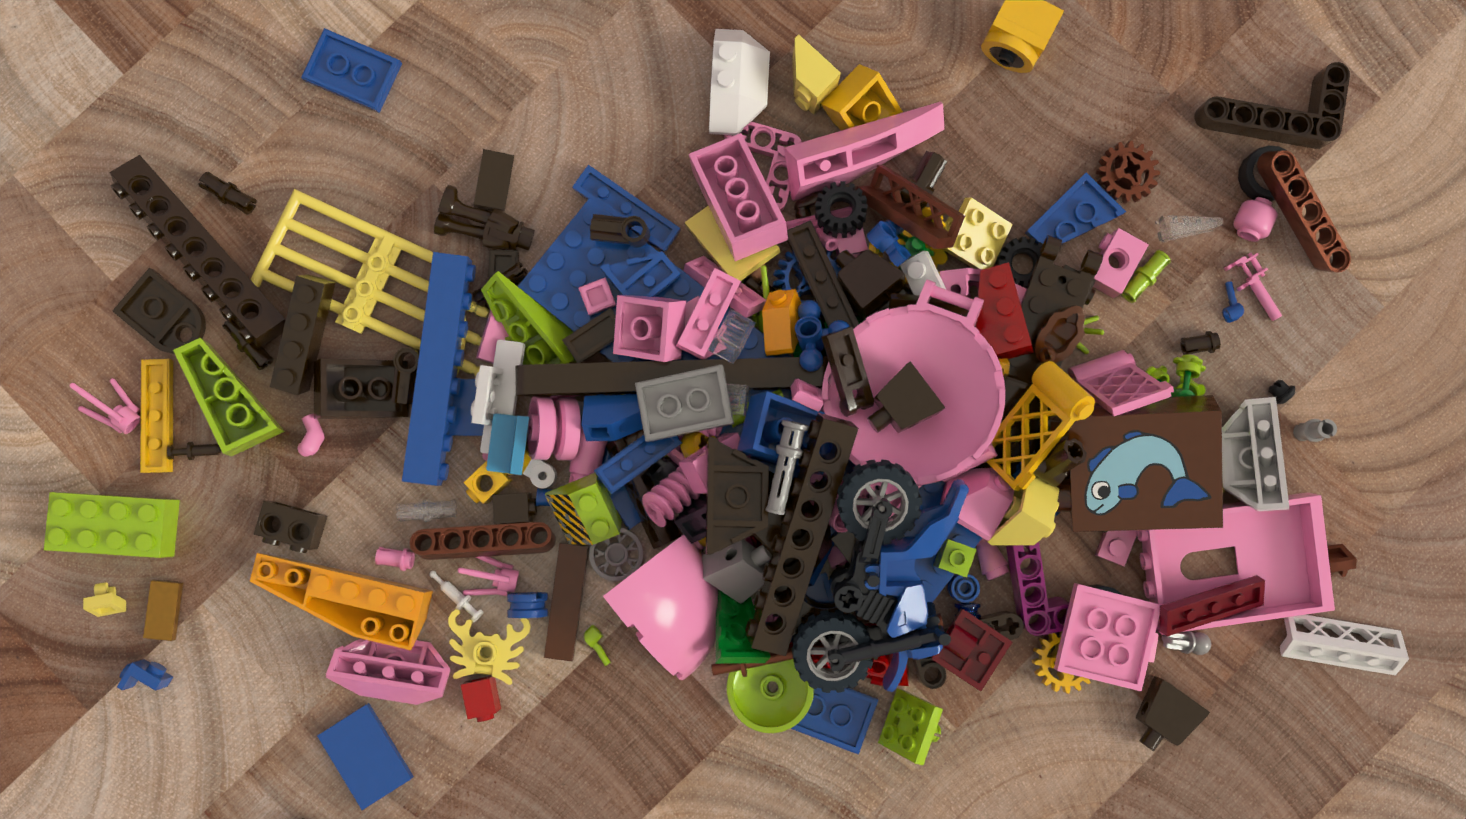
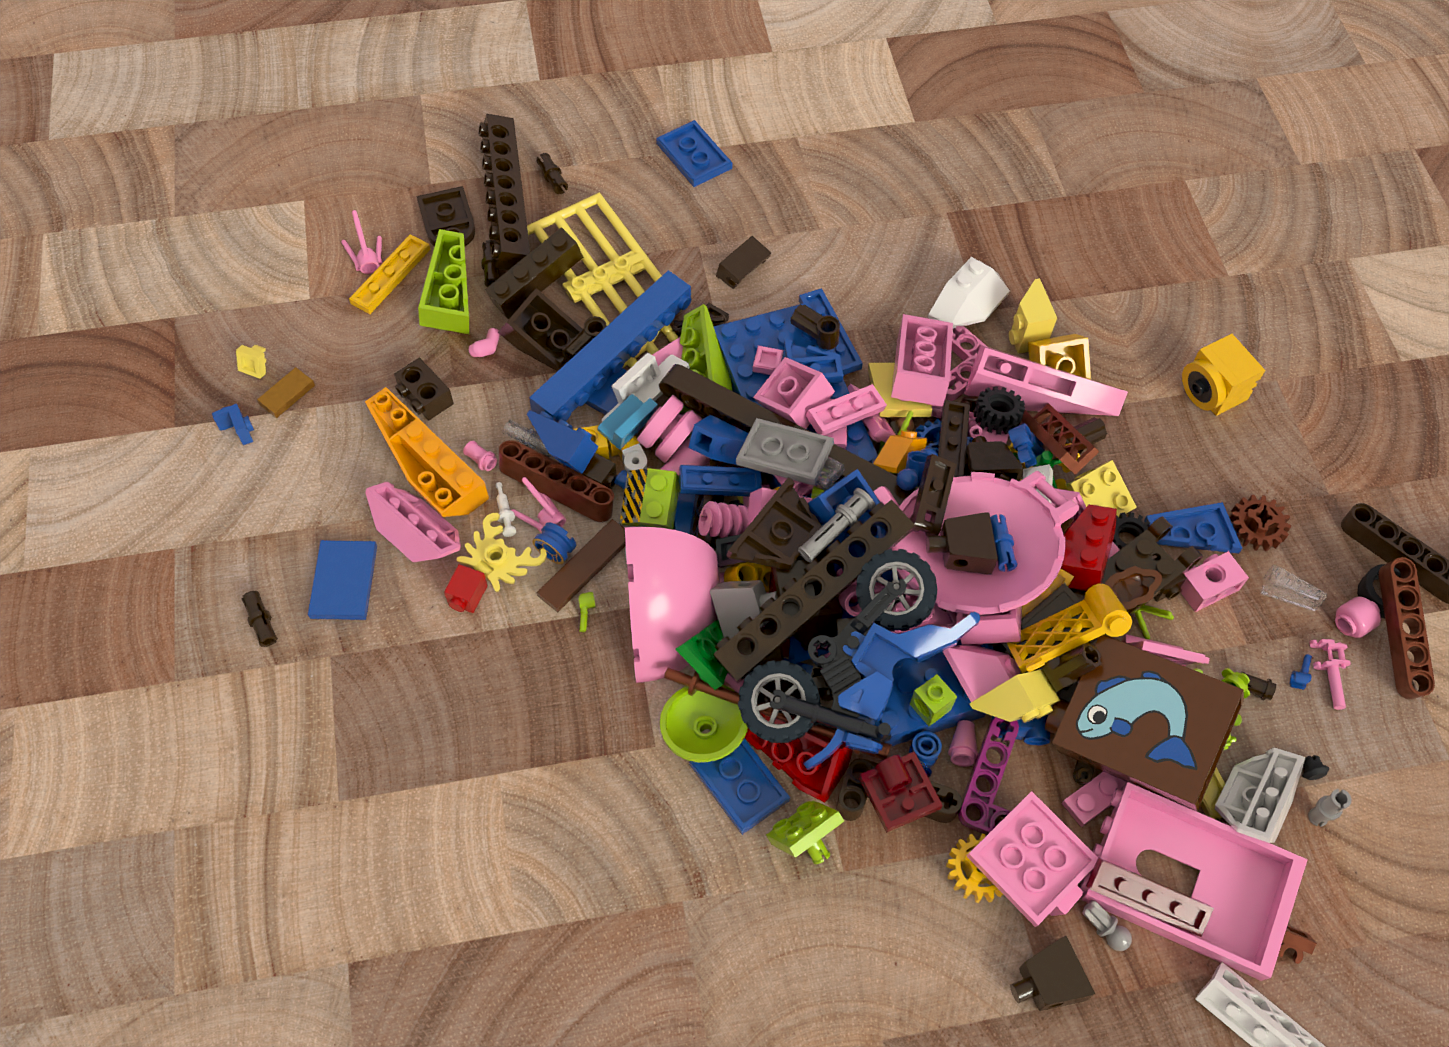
camera: 30 degrees right, 25 degrees down
(111, 525) = (302, 316): lime brick -> none
(193, 450) = (396, 306): dark brown piece -> none
(468, 510) = (566, 445): none -> blue slope
(500, 229) = (725, 292): dark brown piece -> none
(592, 337) = (744, 382): dark brown tile -> none
(728, 349) = (852, 434): clear slope -> none
(936, 379) = (1004, 543): none -> blue pin
(1145, 276) = (1233, 607): lime pin -> none

